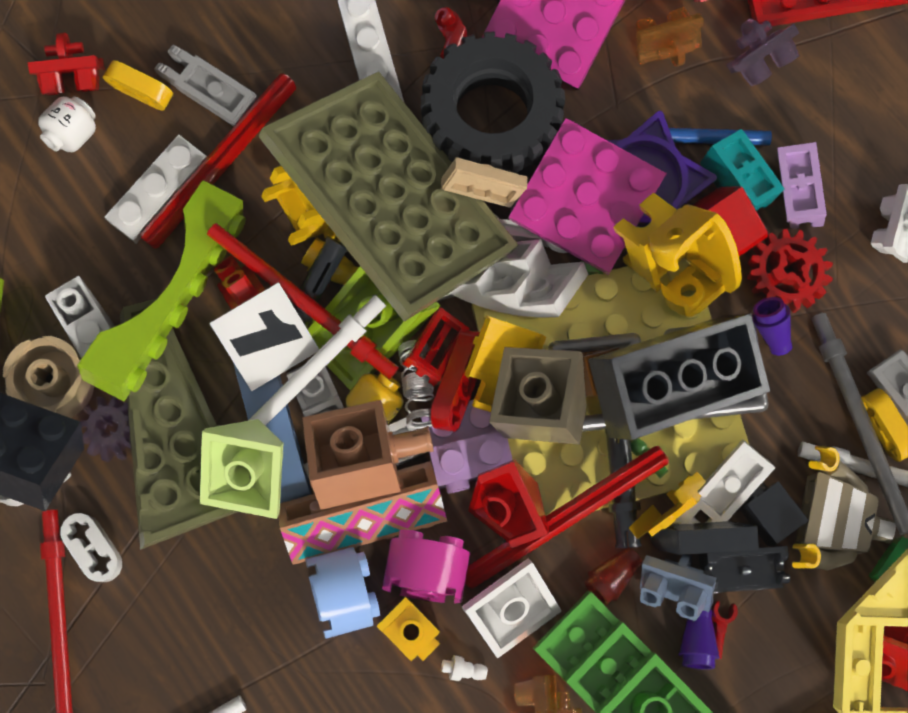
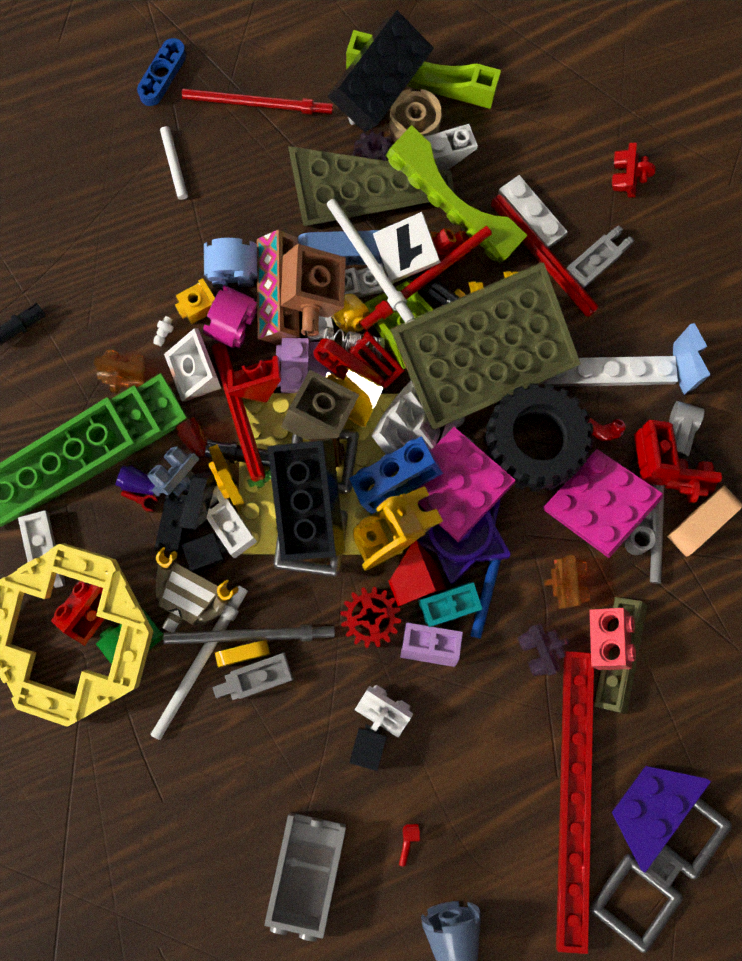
camera: 100 degrees right, 0 degrees up
(67, 124) = (589, 162): white head -> none
(83, 553) = (302, 128): white beam -> none
(138, 85) = (608, 212): yellow beam -> none
(242, 468) = (323, 213): yellowish green slope -> none
(483, 182) = (480, 413): tan plate -> none
(604, 251) = (409, 477): none -> blue brick
(774, 324) = (334, 590): dark purple cone -> none

